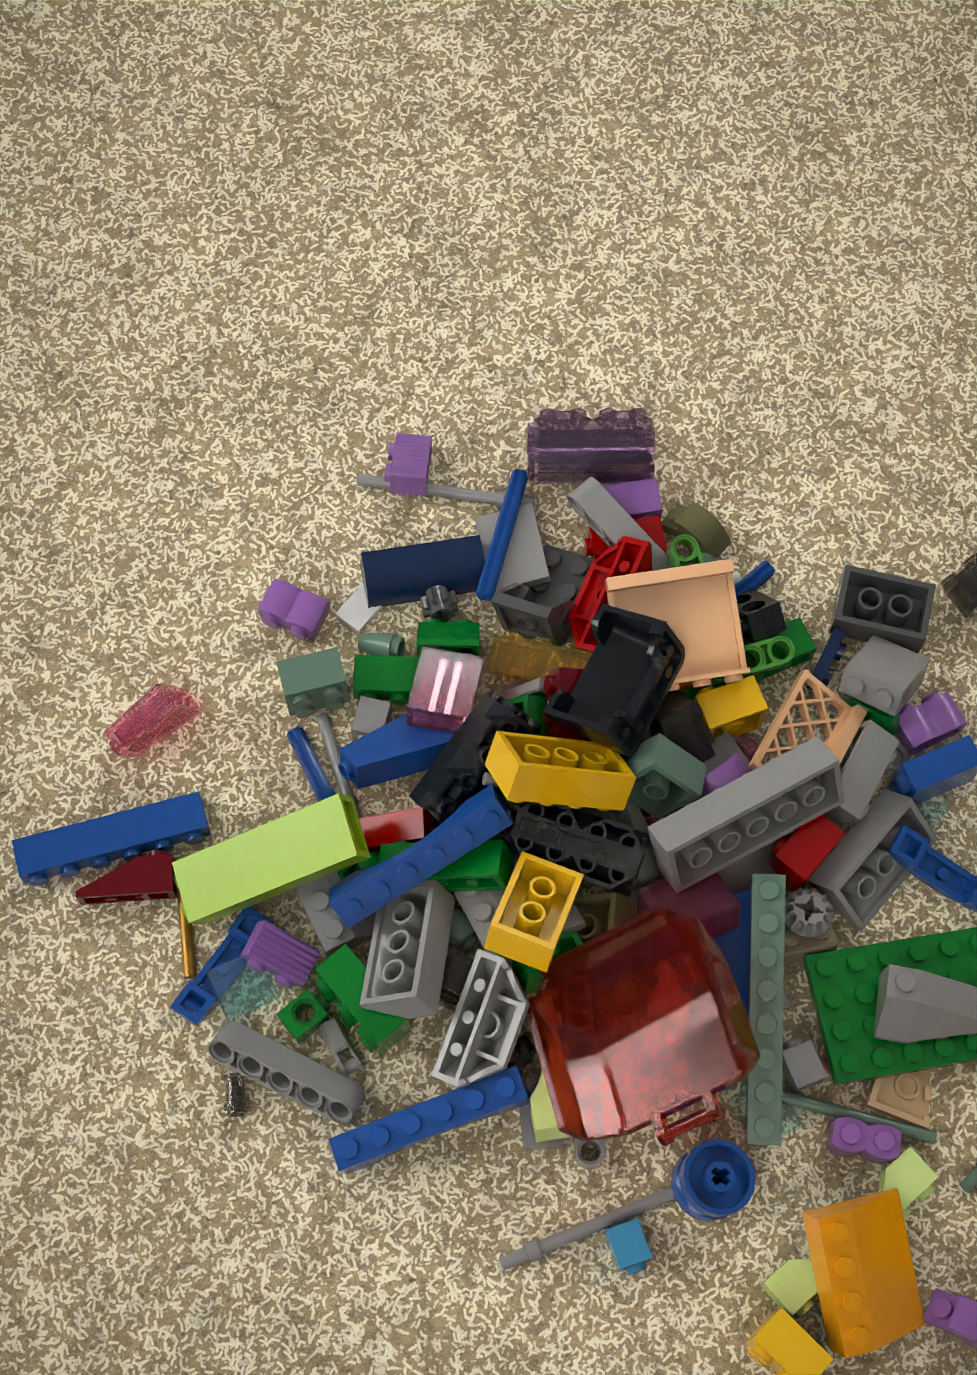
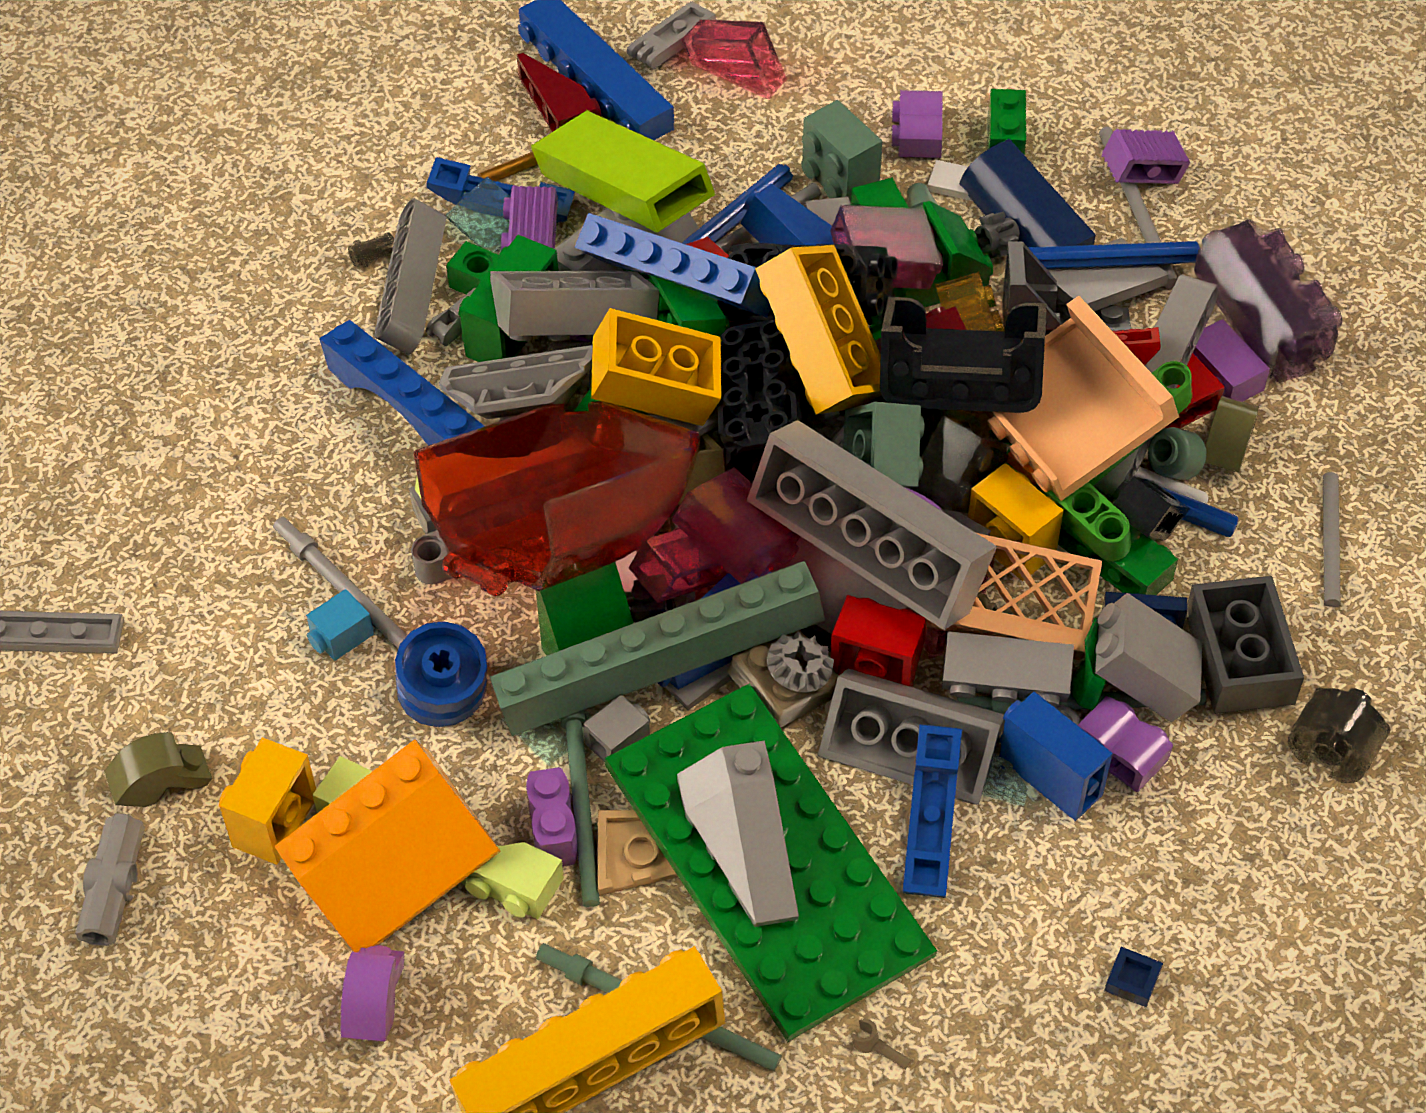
camera: 70 degrees right, 15 degrees down
(98, 759) = (665, 38): none -> light grey hinge
(331, 548) = (1007, 117): none -> green brick
(802, 510) = (1331, 540): none -> light grey bar

